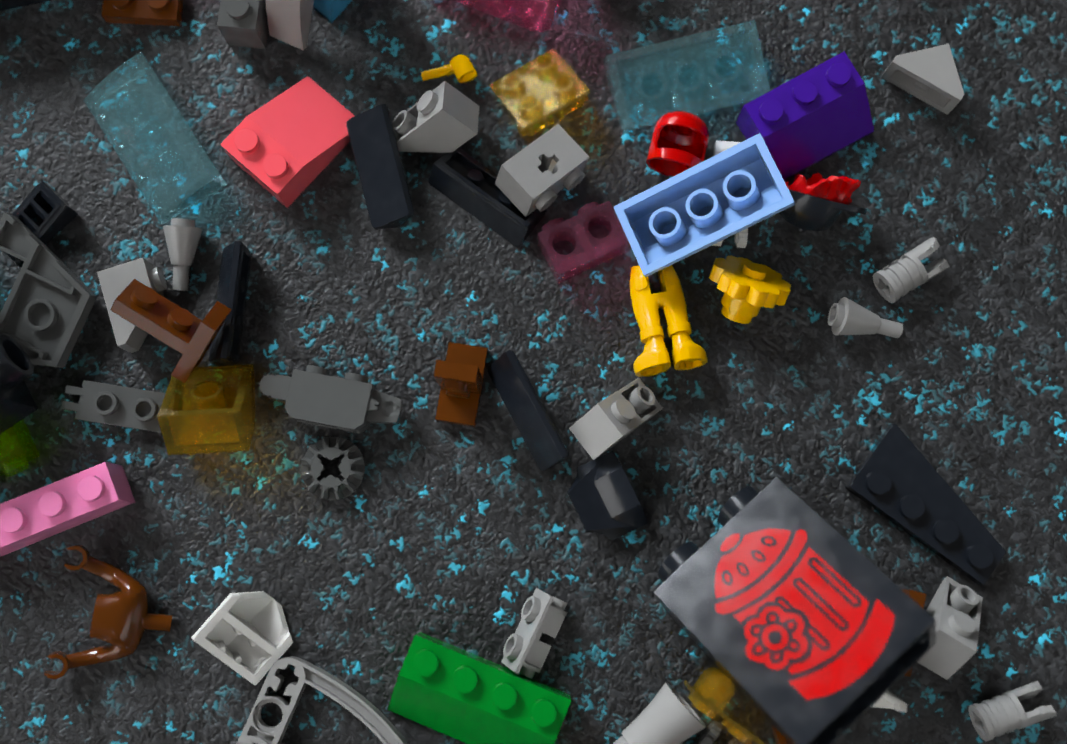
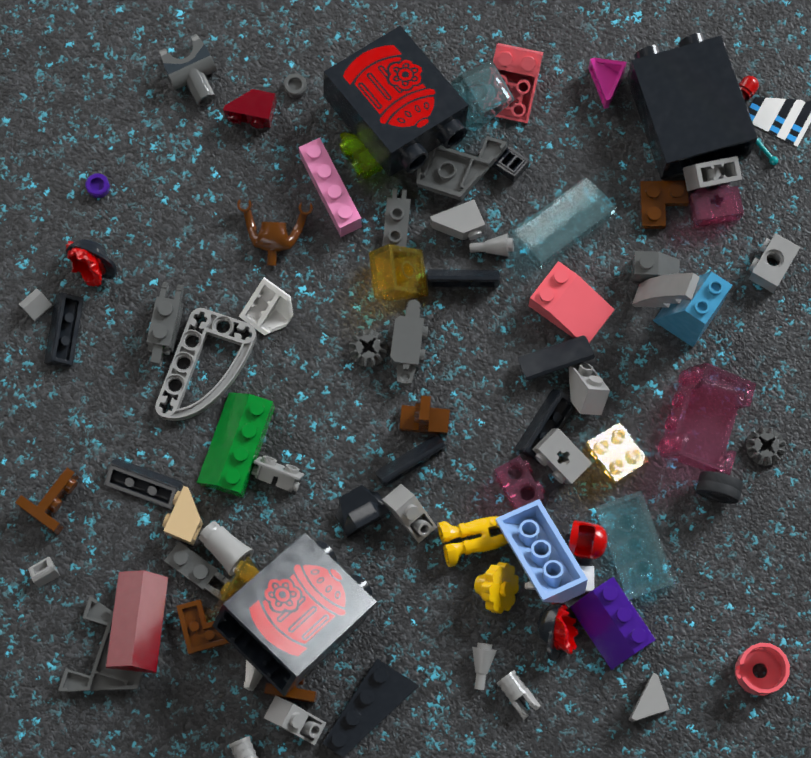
camera: 85 degrees right, 5 degrees down
(171, 324) = (445, 245): reddish brown bracket -> none
(459, 65) = (628, 403): yellow hand -> none

